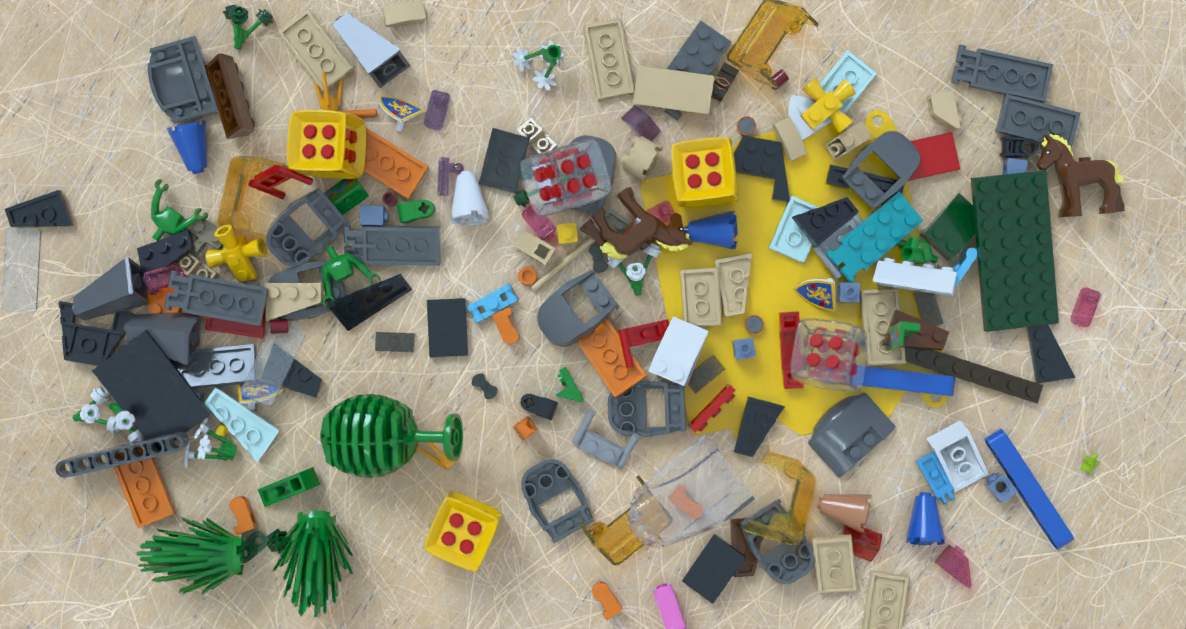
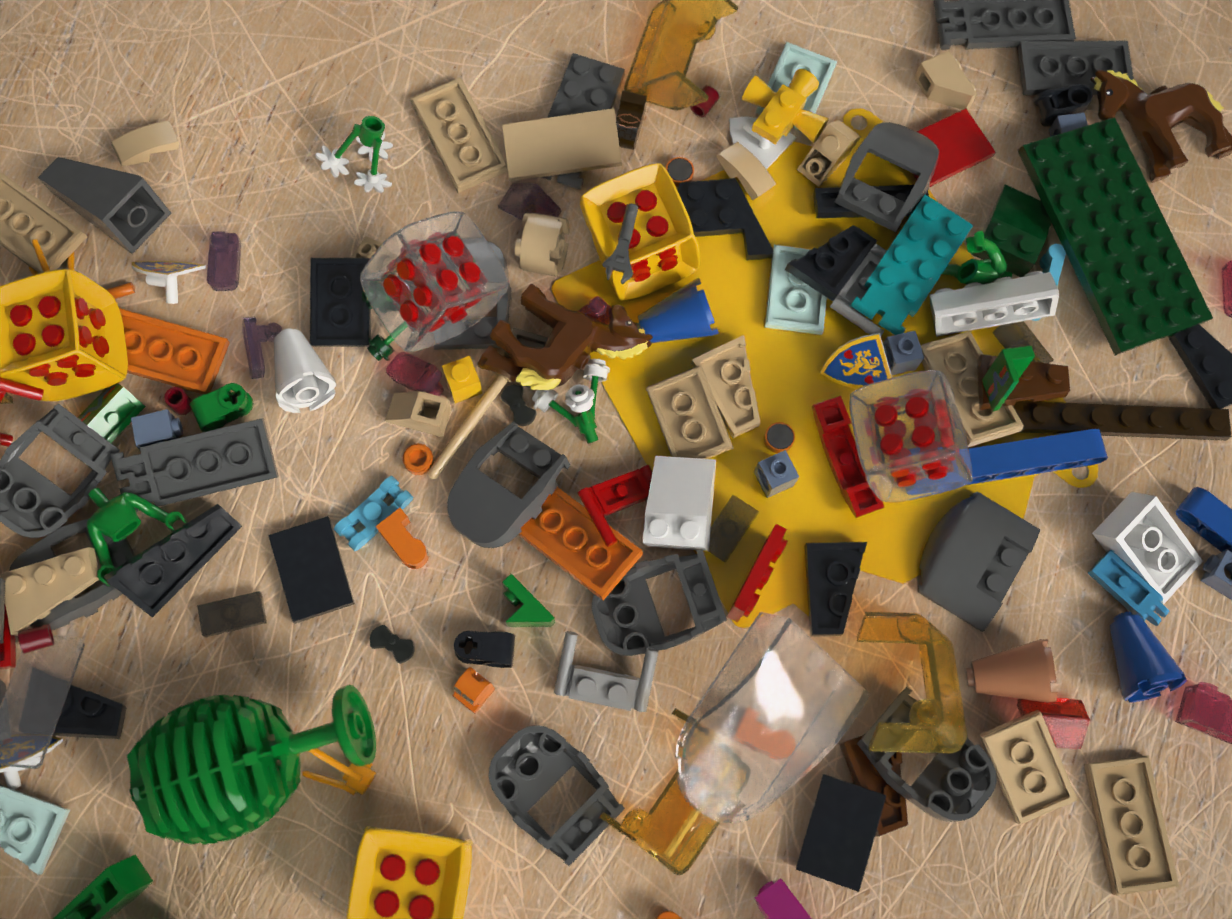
camera: 20 degrees left, 15 degrees down
(684, 196) = (619, 259): none -> dark grey piece

